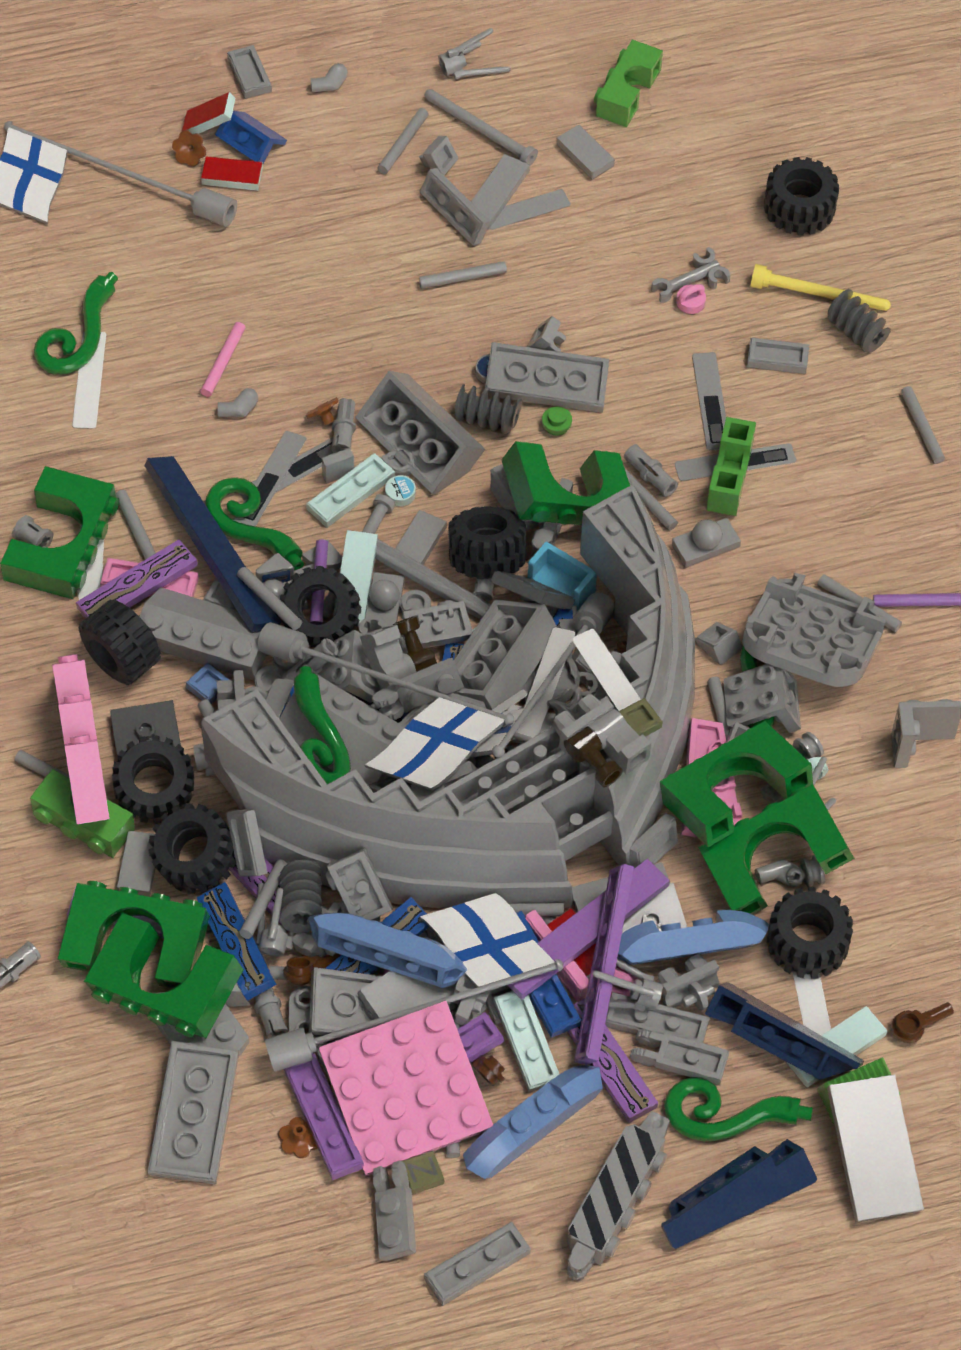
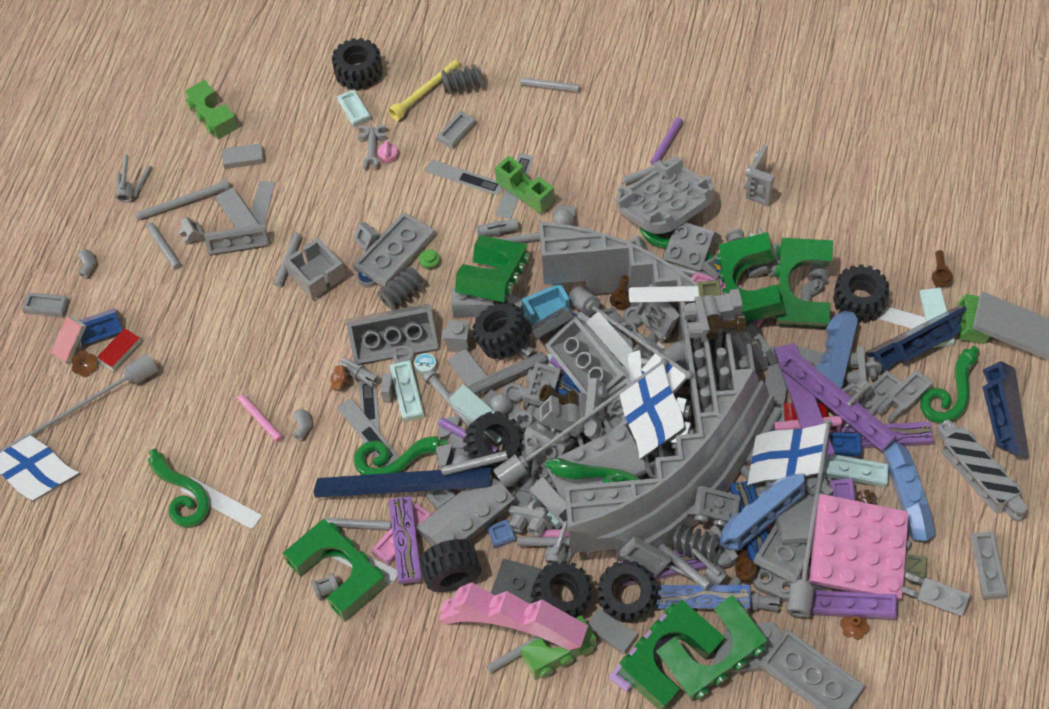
camera: 55 degrees left, 0 degrees up
(452, 311) = (320, 270): none -> light grey piece
(454, 498) = (457, 335): none -> light grey brick
(737, 230) = (353, 108): none -> light aqua tile

